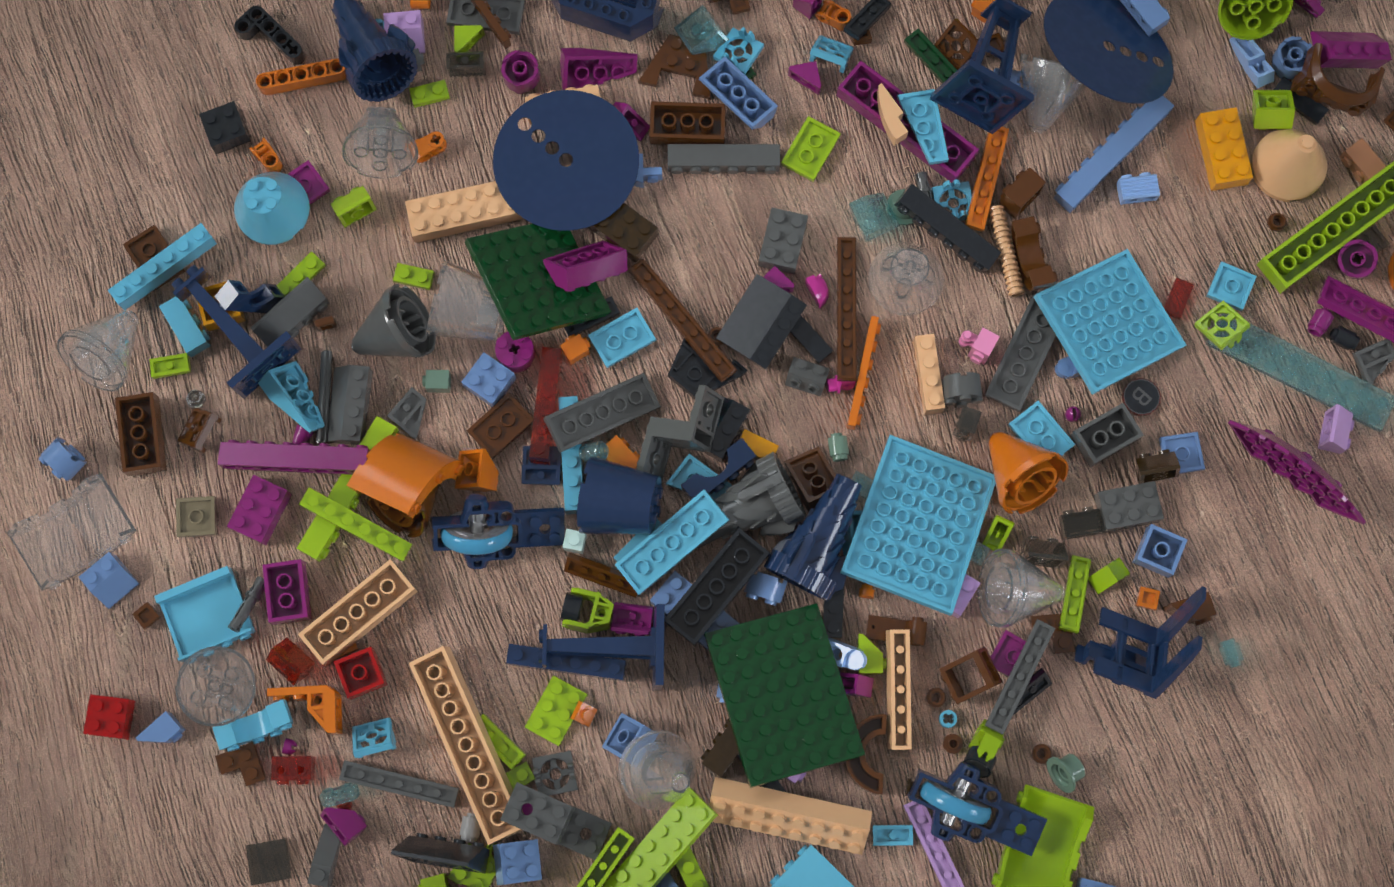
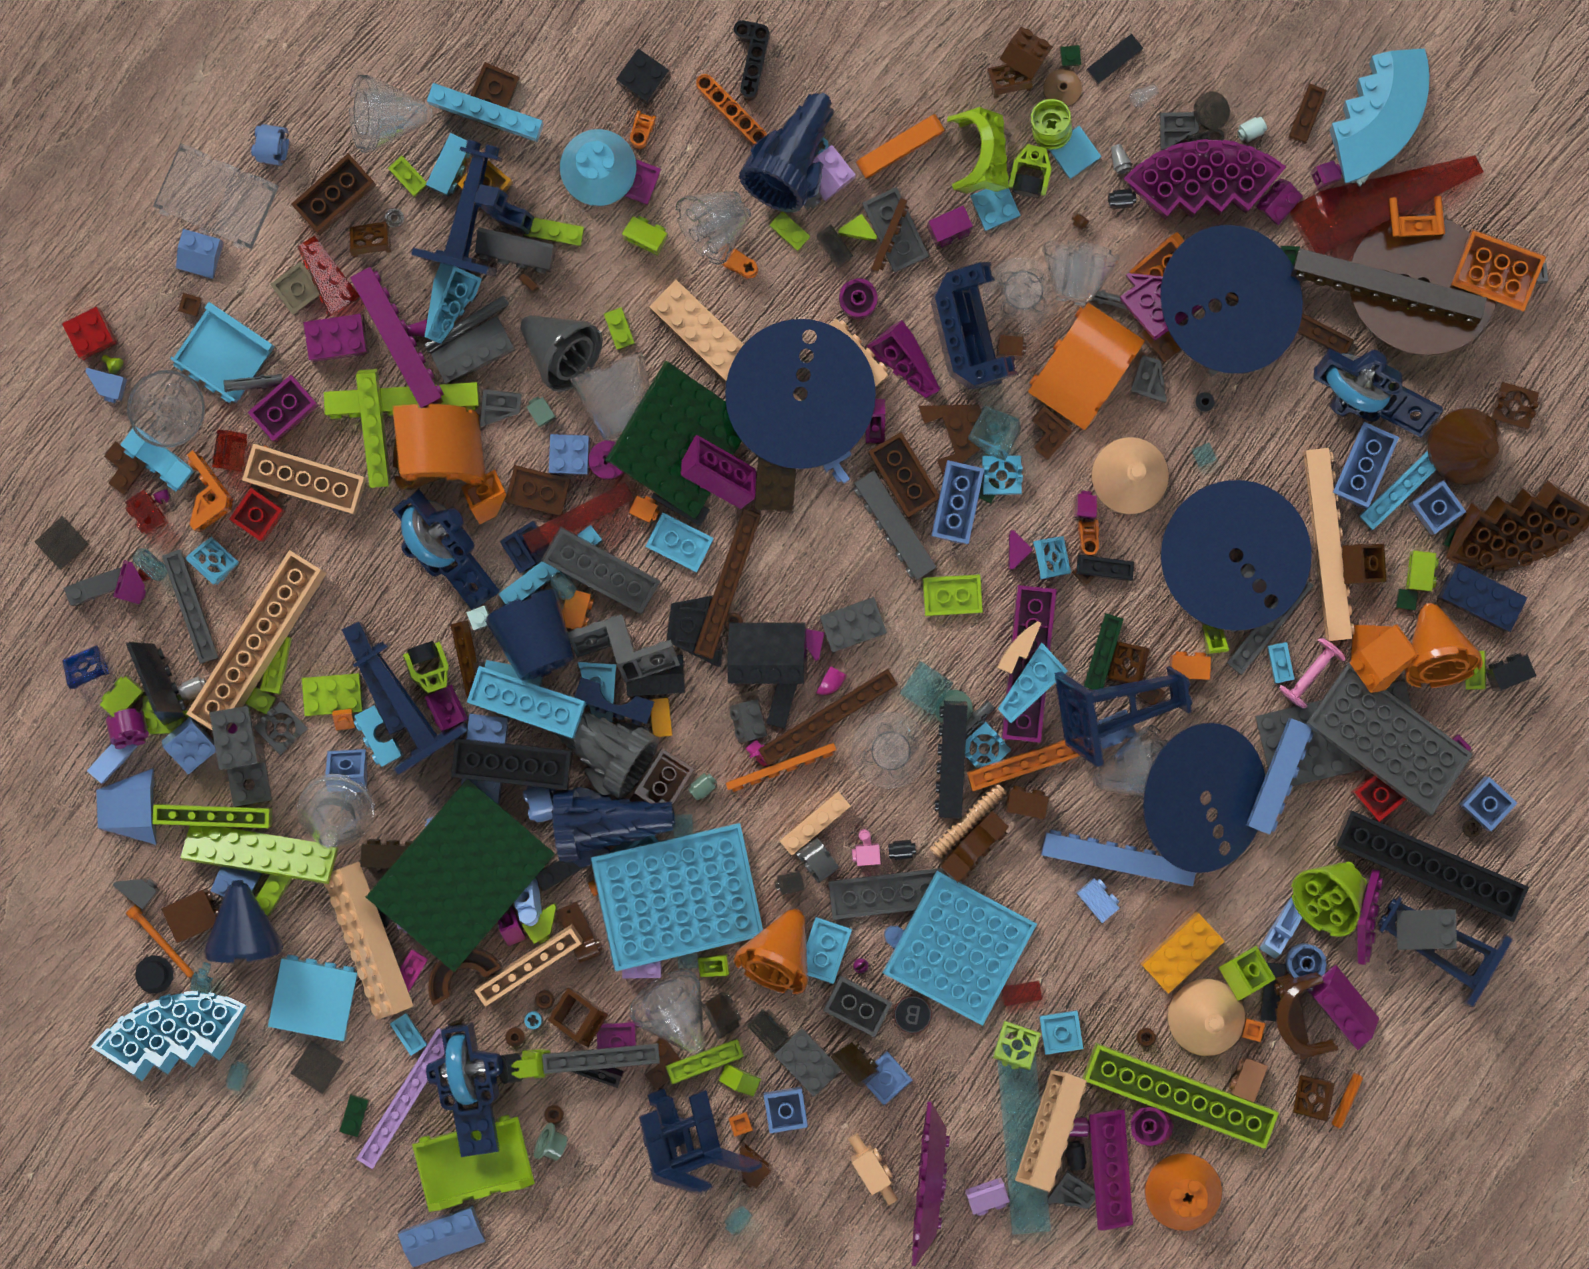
camera: 55 degrees right, 10 degrees up
(149, 715) = (113, 364): none -> lime rock
(208, 484) = (331, 283): none -> clear red wing
(599, 694) = (383, 752): none -> medium azure arch
(835, 792) = (412, 967): none -> dark pink plate
(996, 318) = (901, 849): none -> black brick
(1256, 510) = (871, 1170): none -> light nougat brick
(1313, 340) = (1051, 1130): none -> light nougat brick
(1323, 133) = (1253, 1030): none -> orange plate

